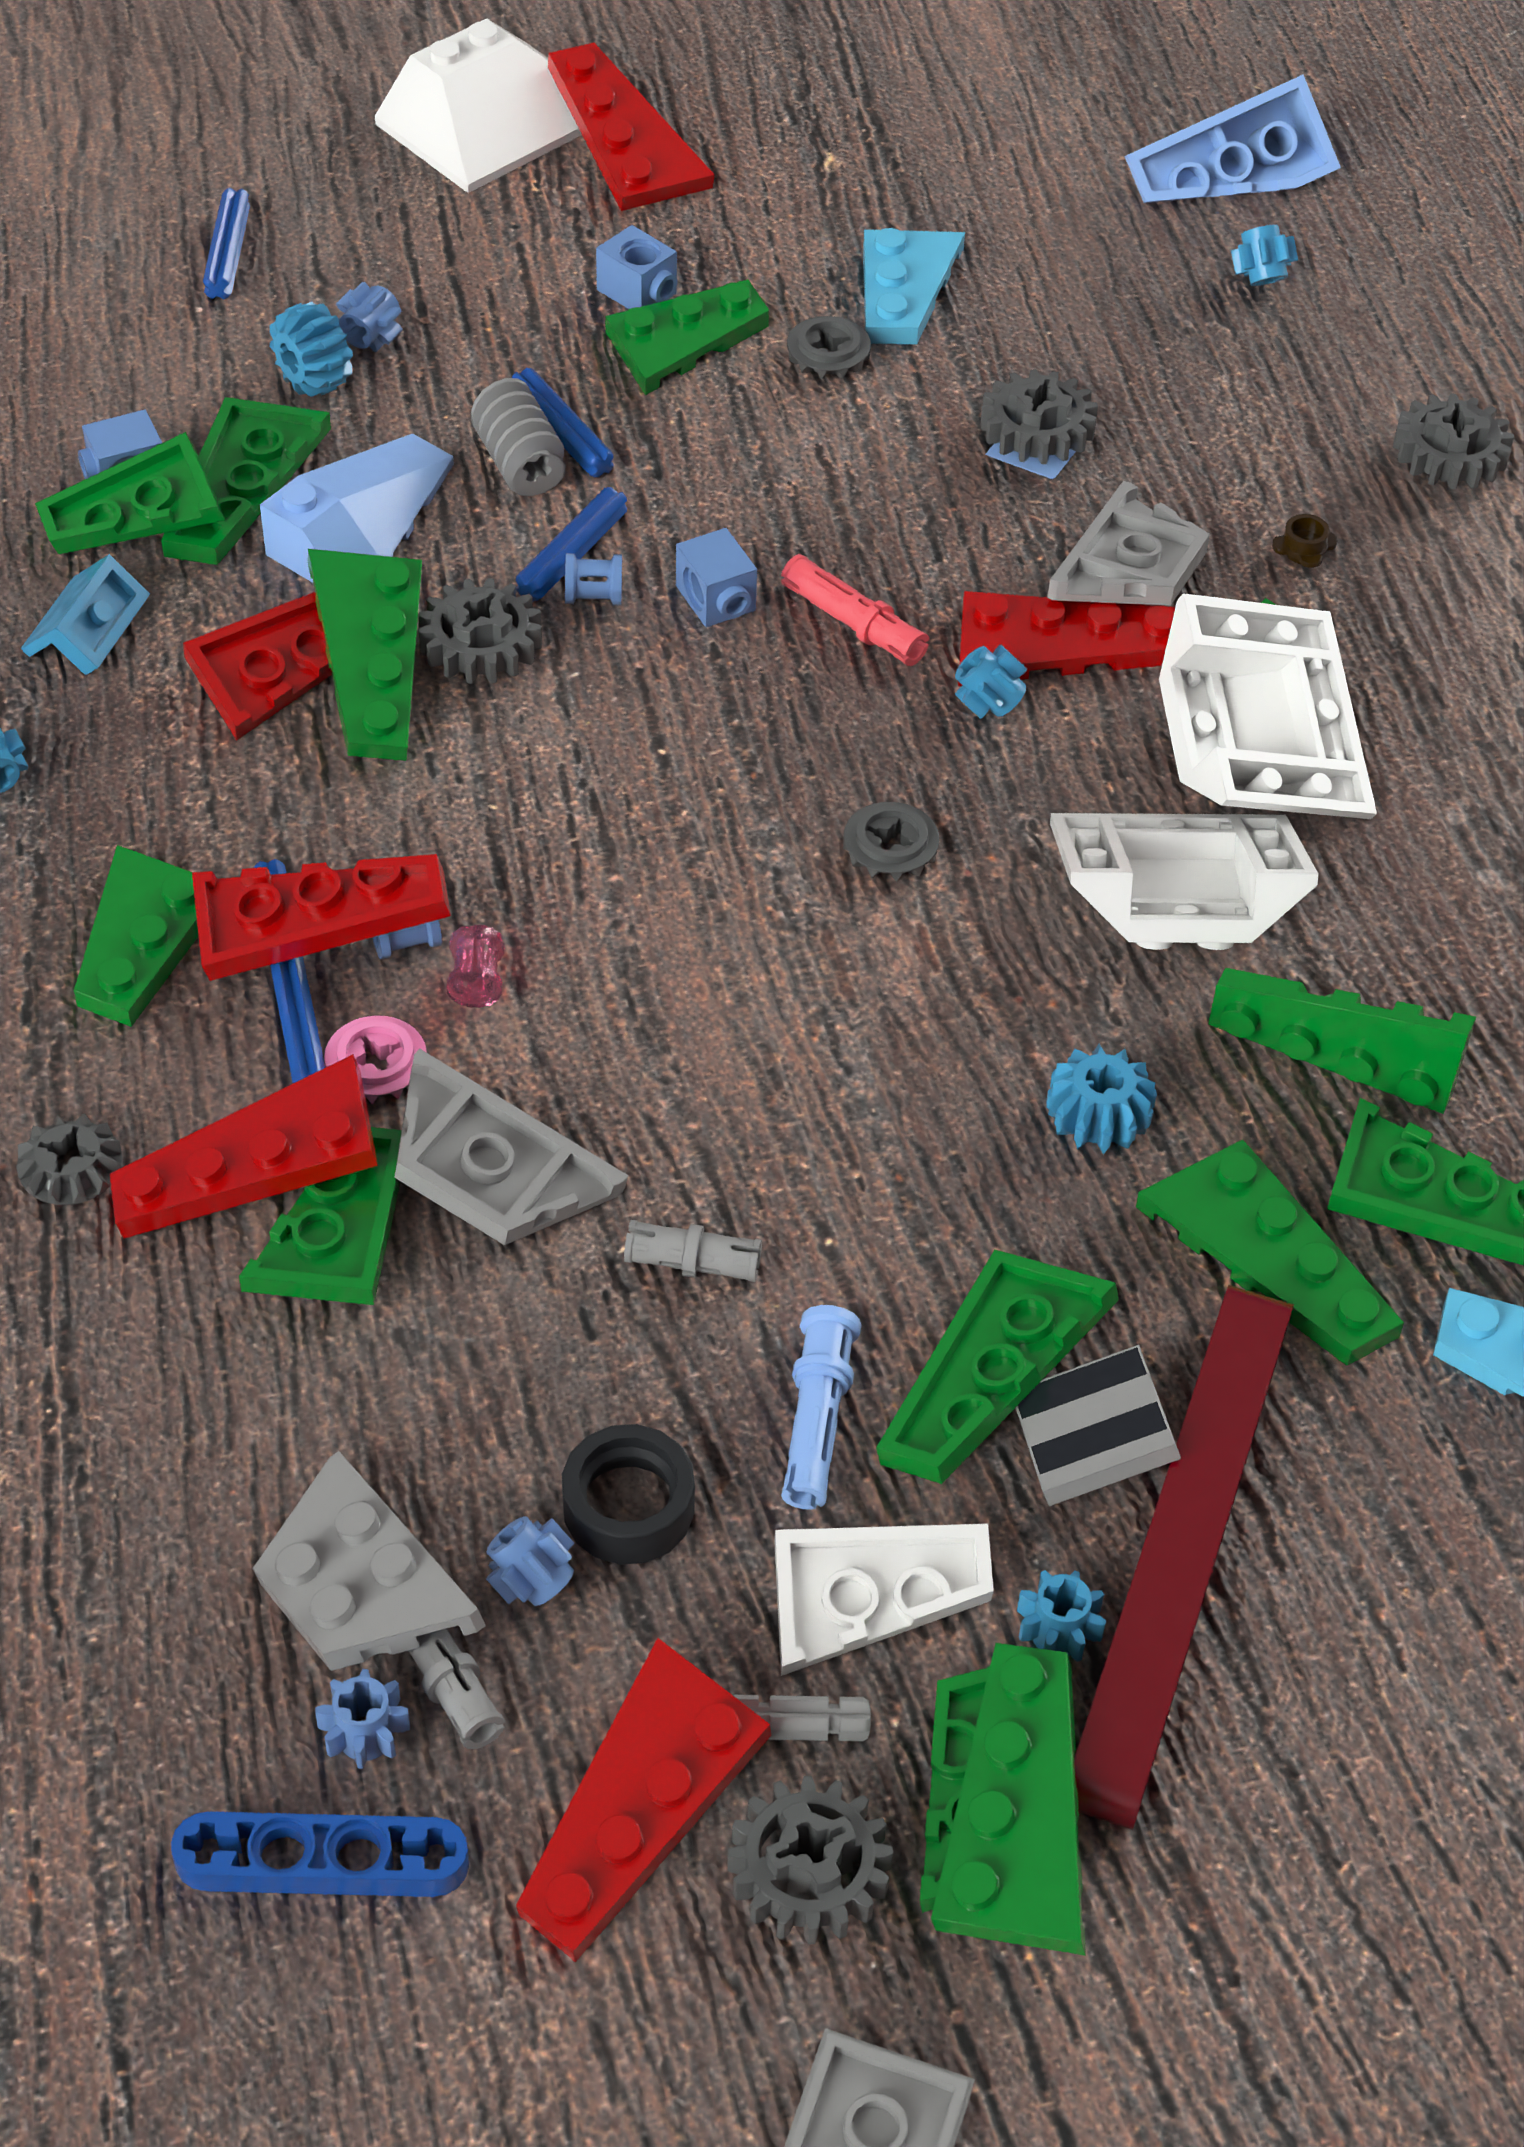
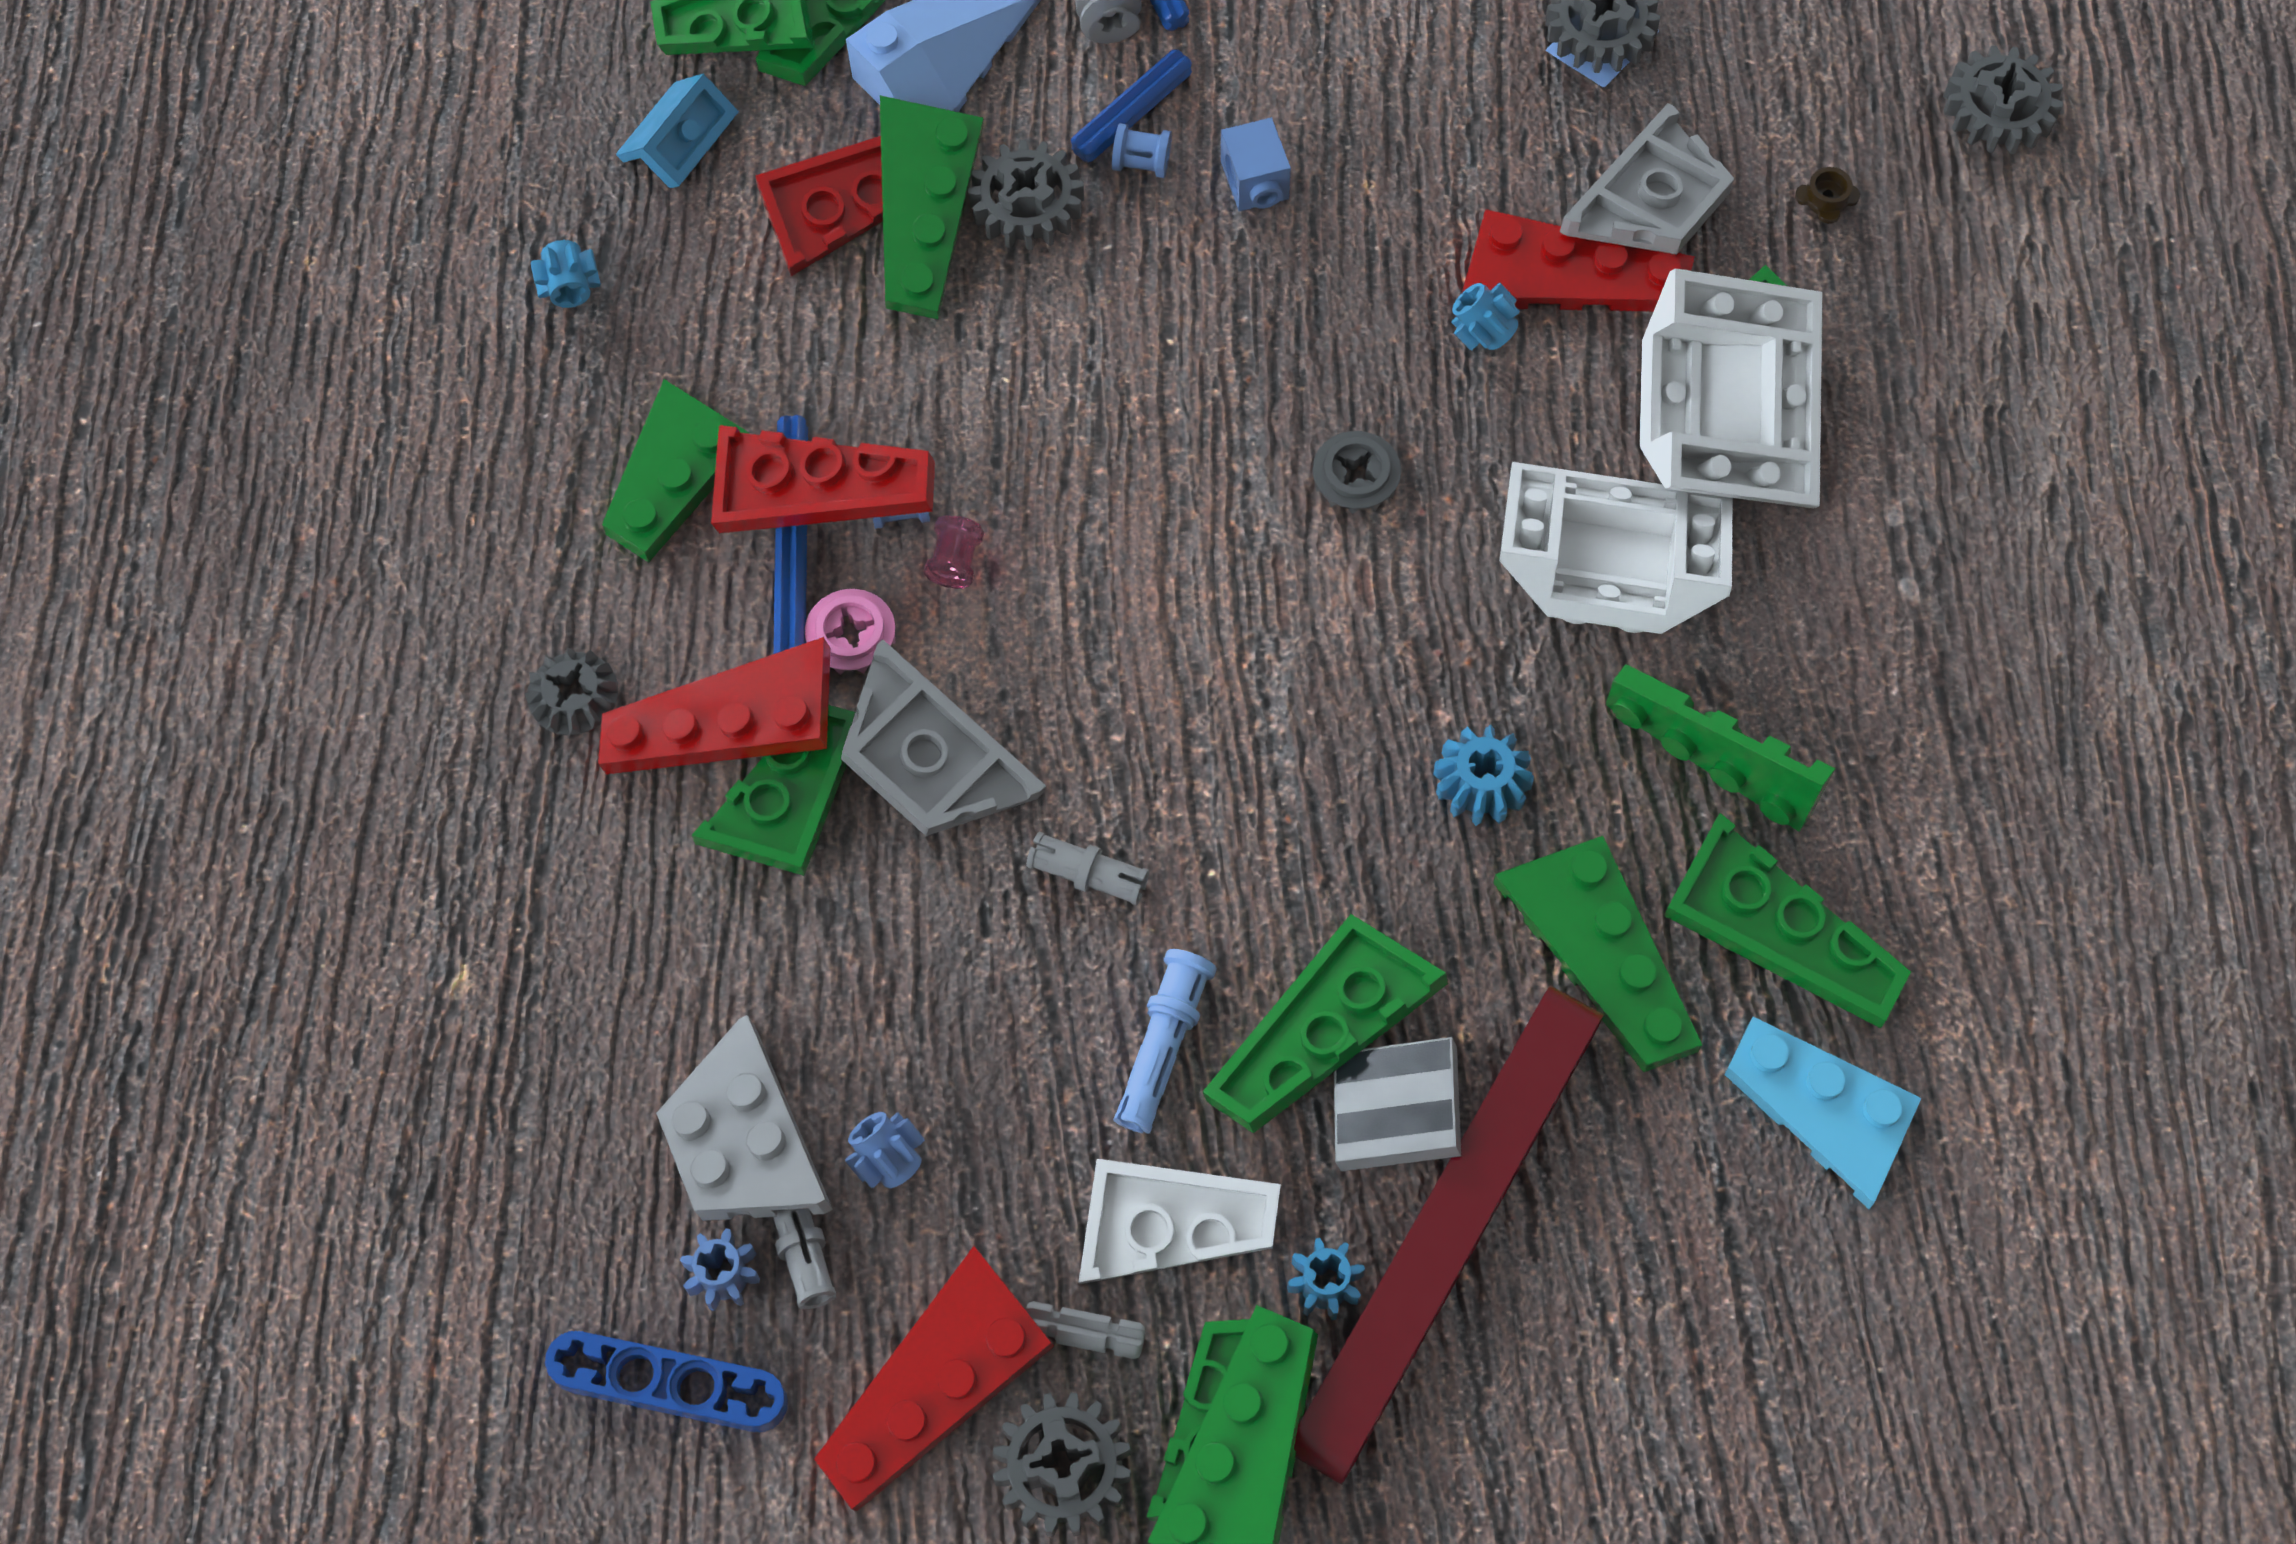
camera: 15 degrees right, 15 degrees up
(621, 1448) = (969, 1054): black tyre -> none
(870, 620) = (1391, 231): coral pin -> none

